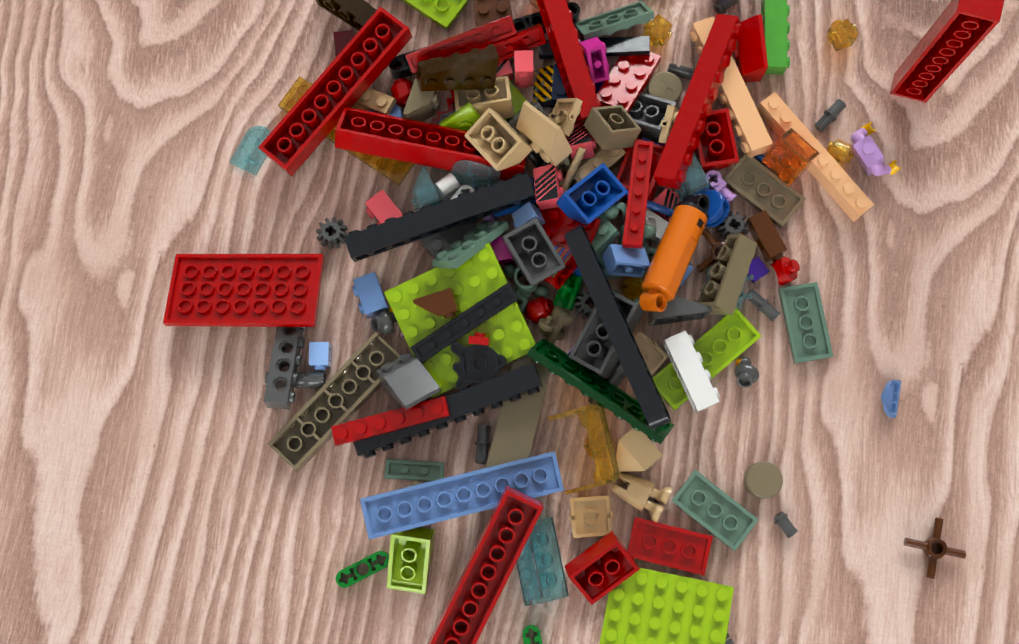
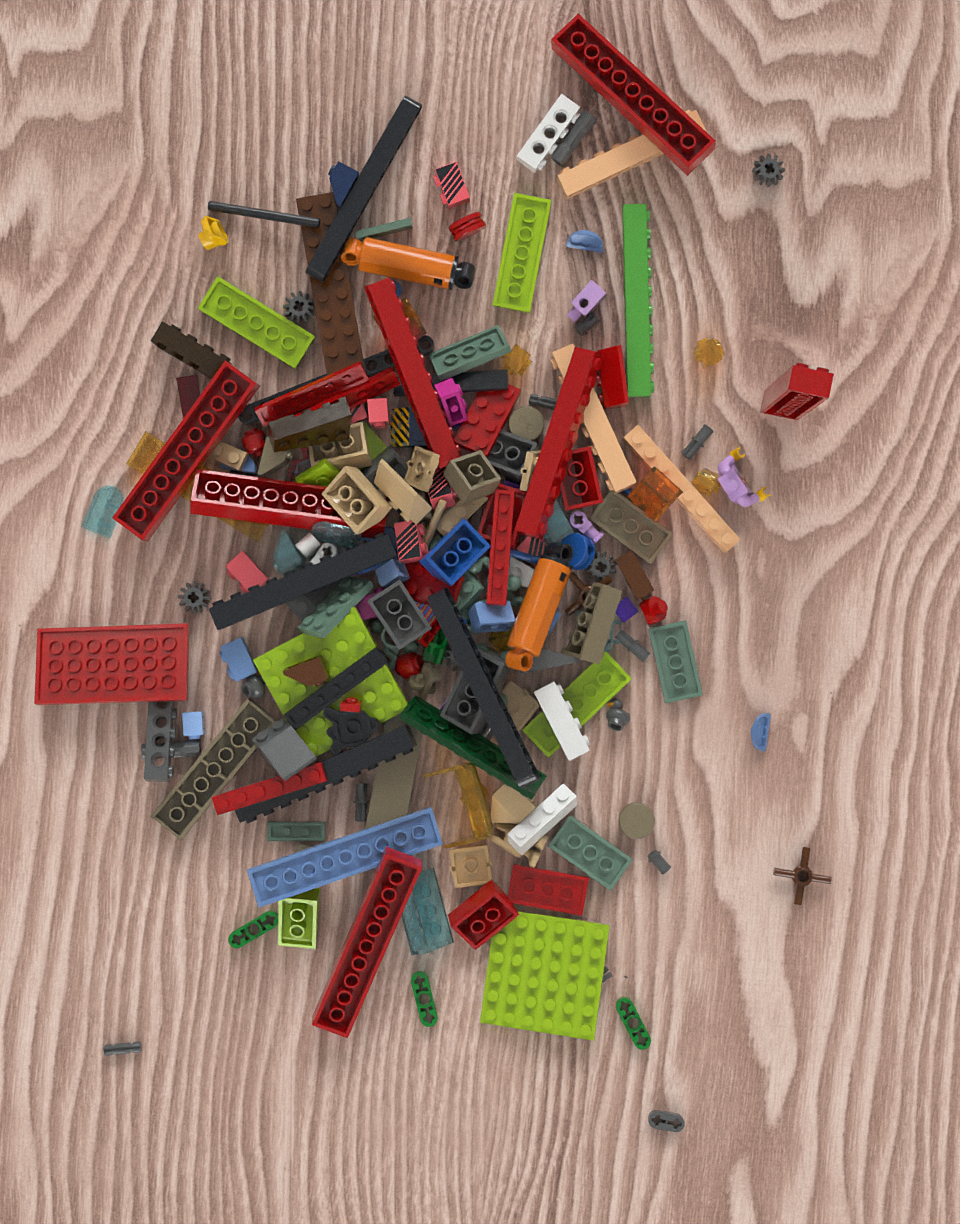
camera: 10 degrees left, 10 degrees up
(667, 470) = (542, 819): none -> white brick

